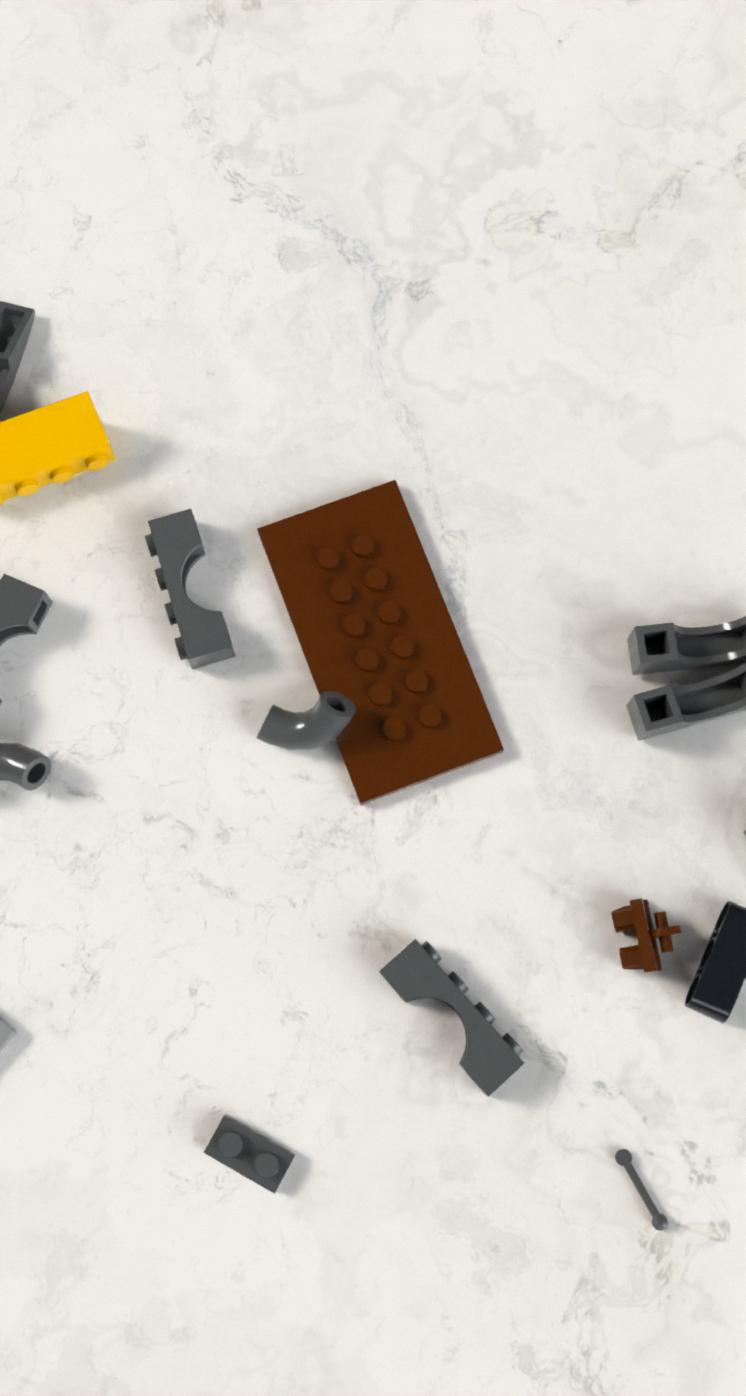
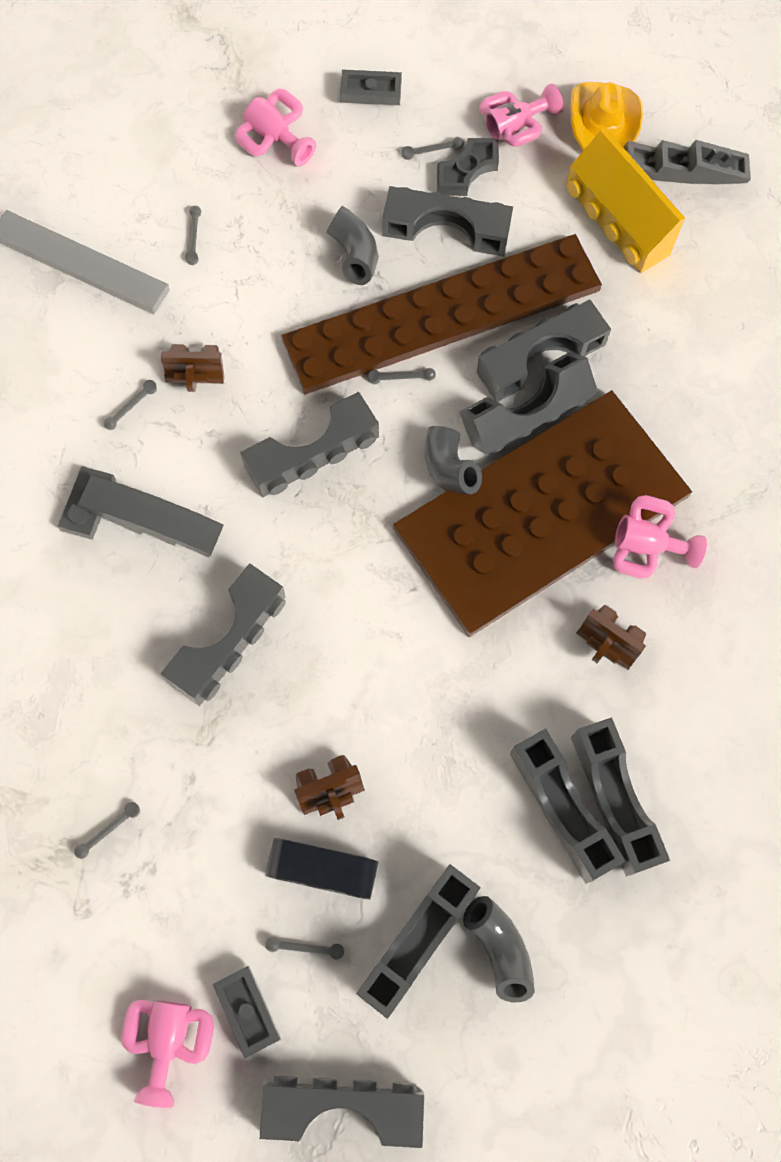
camera: 75 degrees right, 5 degrees down
(110, 694) = (440, 313): none -> reddish brown plate
(110, 995) = (193, 367): none -> reddish brown hips
(116, 1053) = (149, 388): none -> dark grey hinge
(171, 783) = (375, 377): none -> dark grey hinge
(244, 578) = (564, 385): none -> dark grey arch
(258, 922) = (277, 465): none -> dark grey arch
(287, 1079) = (150, 515): none -> dark grey slope
(442, 539) = (650, 539): none -> bright pink piece
(543, 608) = (610, 639): none -> reddish brown hips

